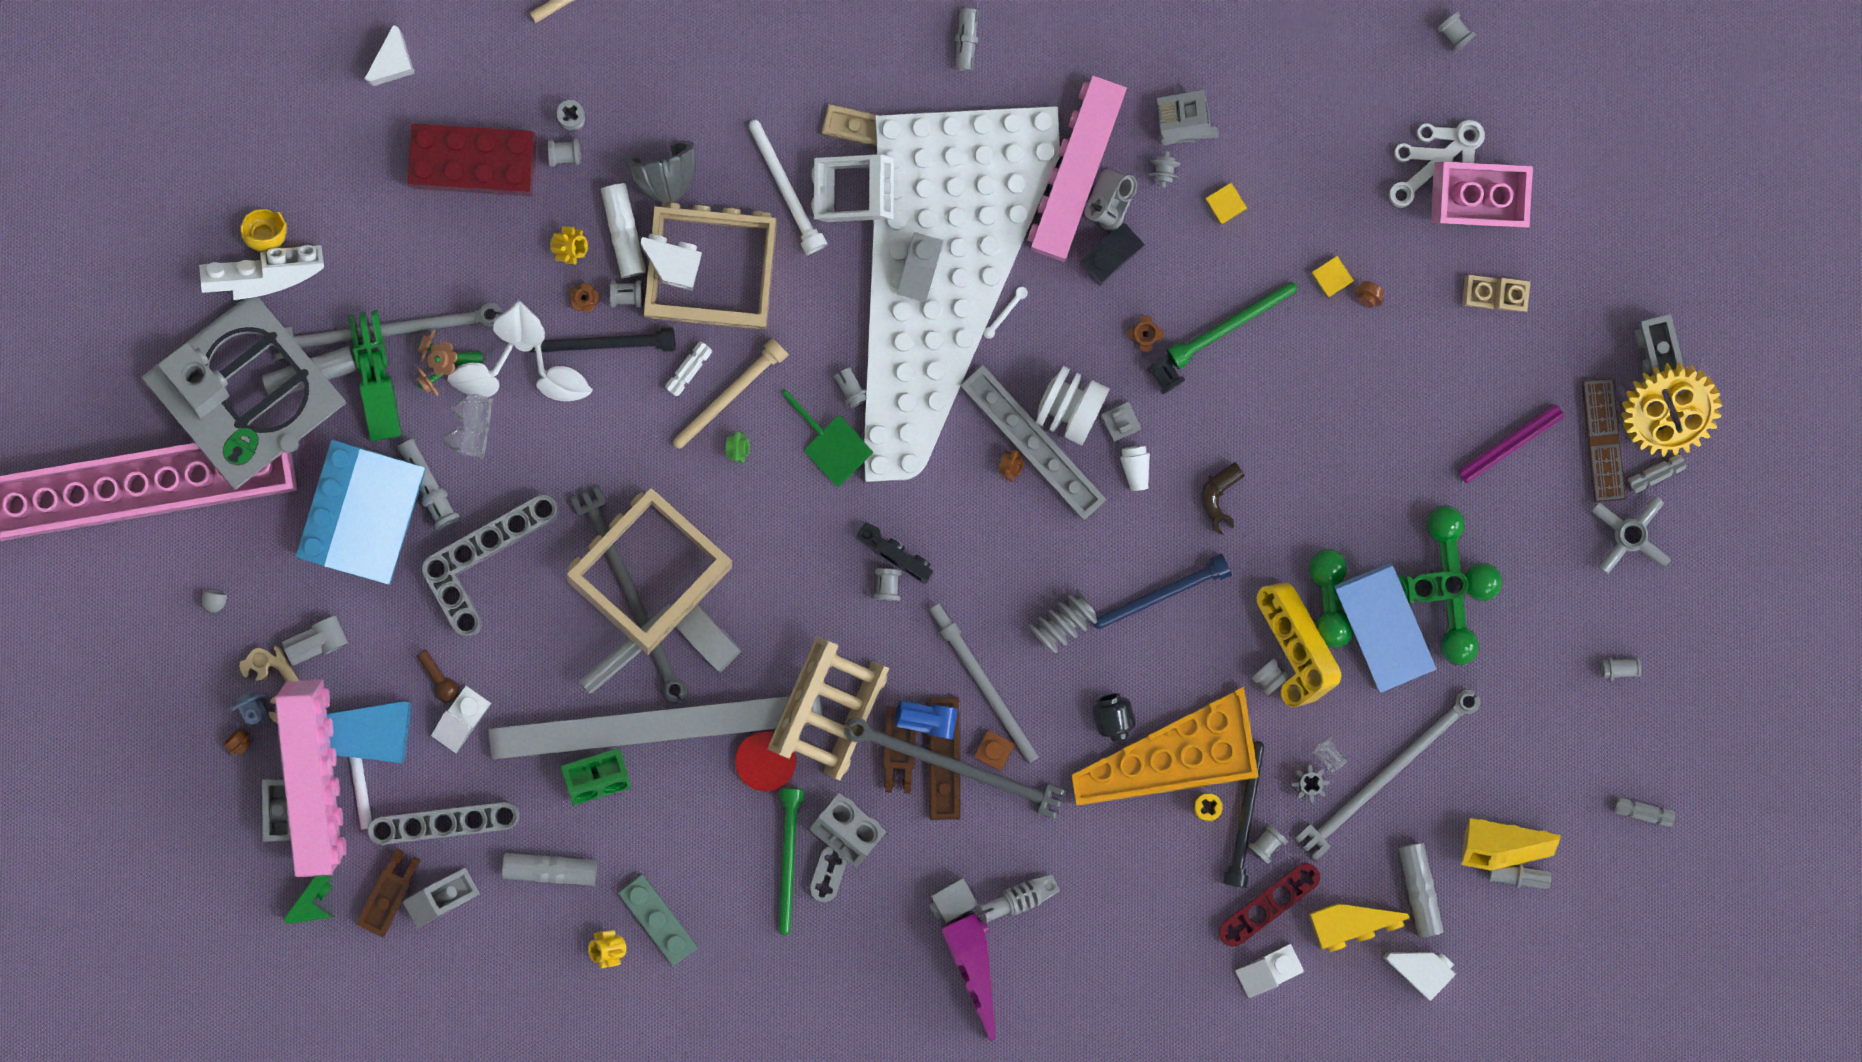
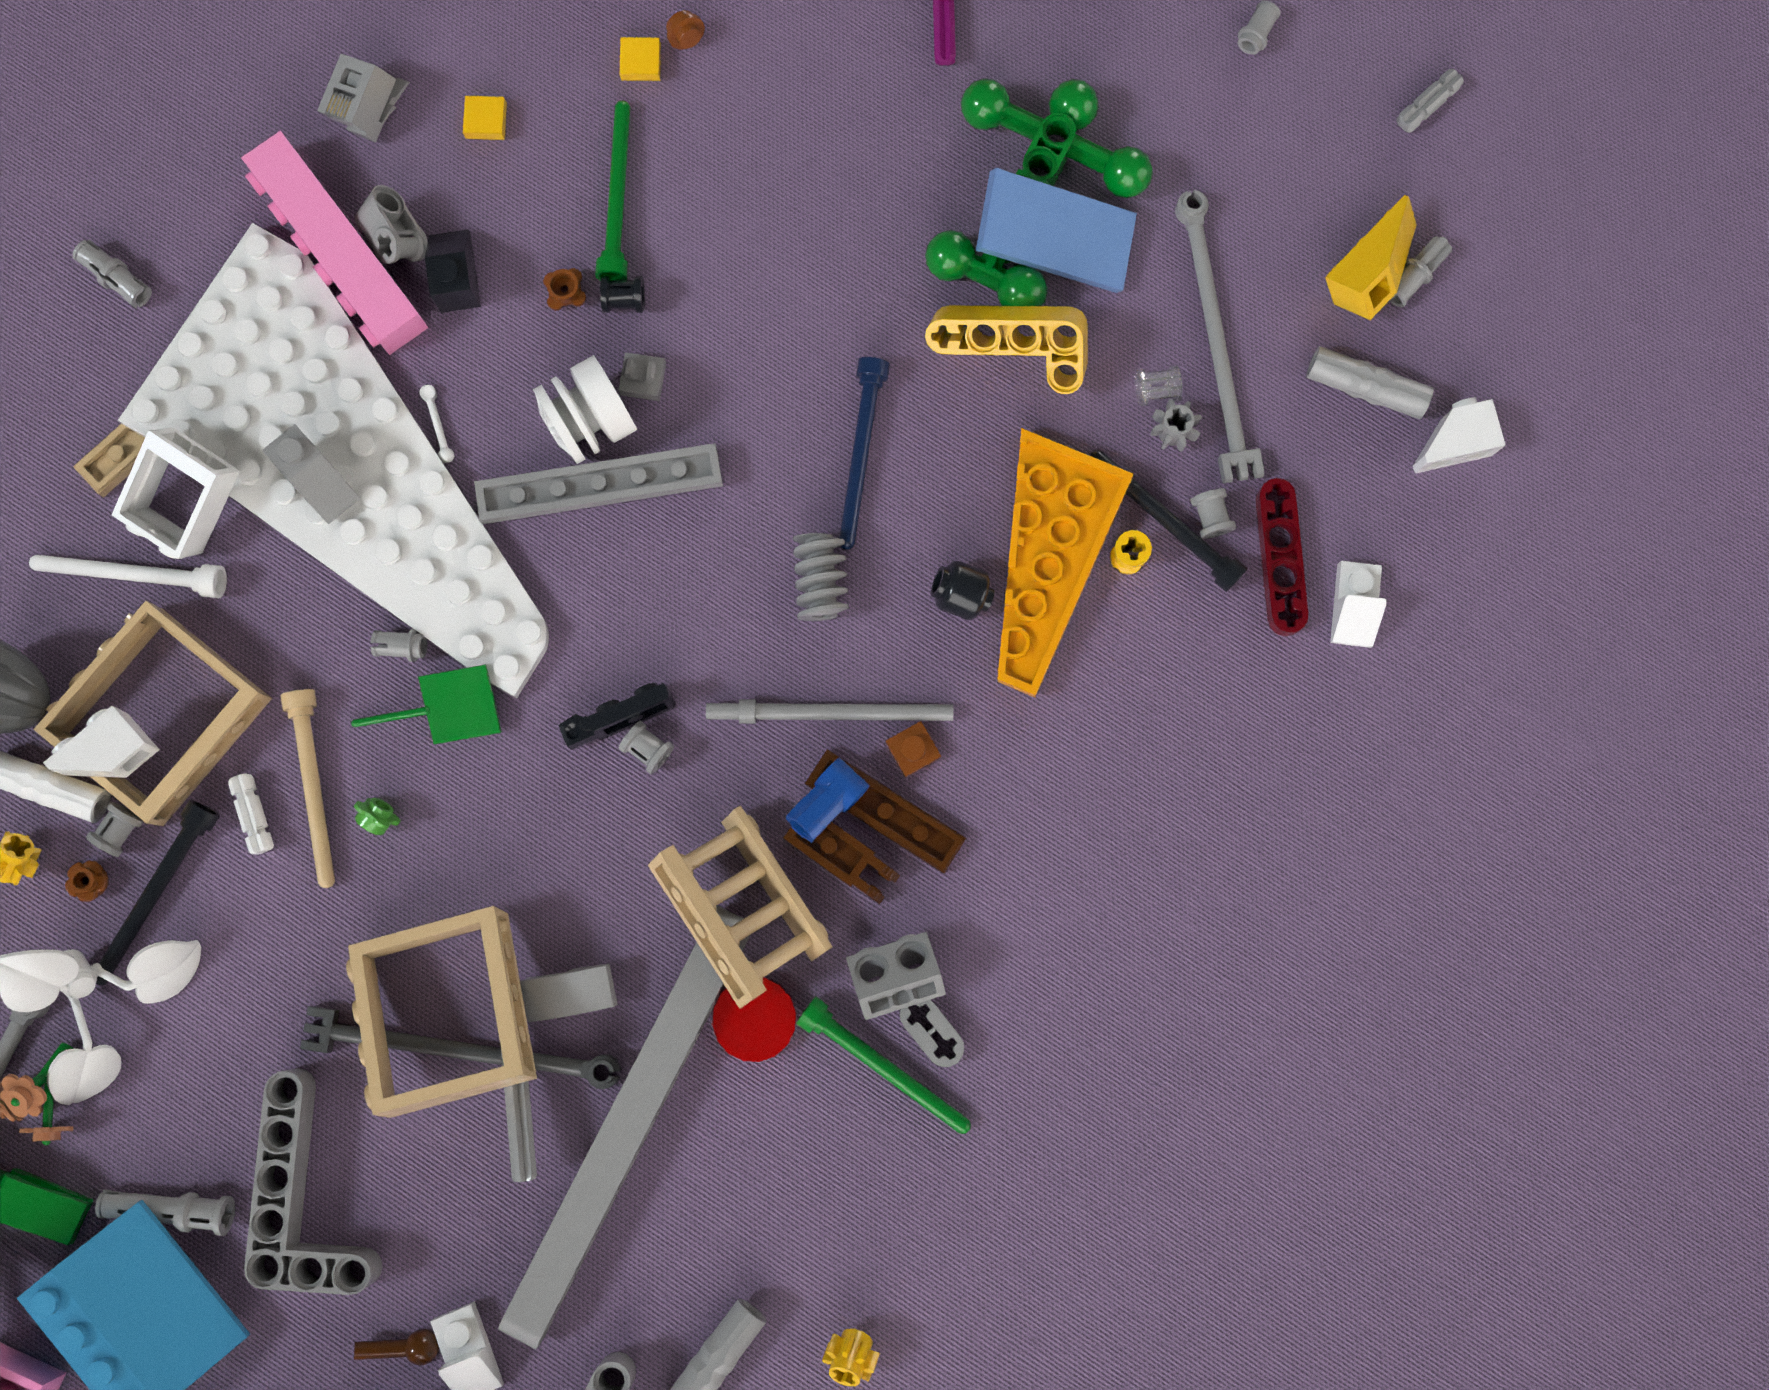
camera: 55 degrees left, 5 degrees down
(472, 437) = (145, 1113): clear tile -> none
(596, 777) = (638, 1236): green brick -> none
(658, 920) = (856, 1269): sand green plate -> none
(952, 901) = (1055, 906): light grey brick -> none
(970, 953) = (1128, 925): magenta wedge -> none
(1011, 465) = (606, 523): dark orange plate -> none
(1019, 898) = (1100, 829): light grey hinge -> none
(1043, 798) = (1002, 729): dark grey hinge -> none
(1136, 466) = (701, 389): white cone -> none
(1164, 169) = (401, 154): light grey wheel -> none
(1214, 489) = (783, 324): dark brown piece -> none
(1270, 676) = (1029, 393): light grey wheel -> none
(1344, 922) = (1354, 490): yellow slope -> none

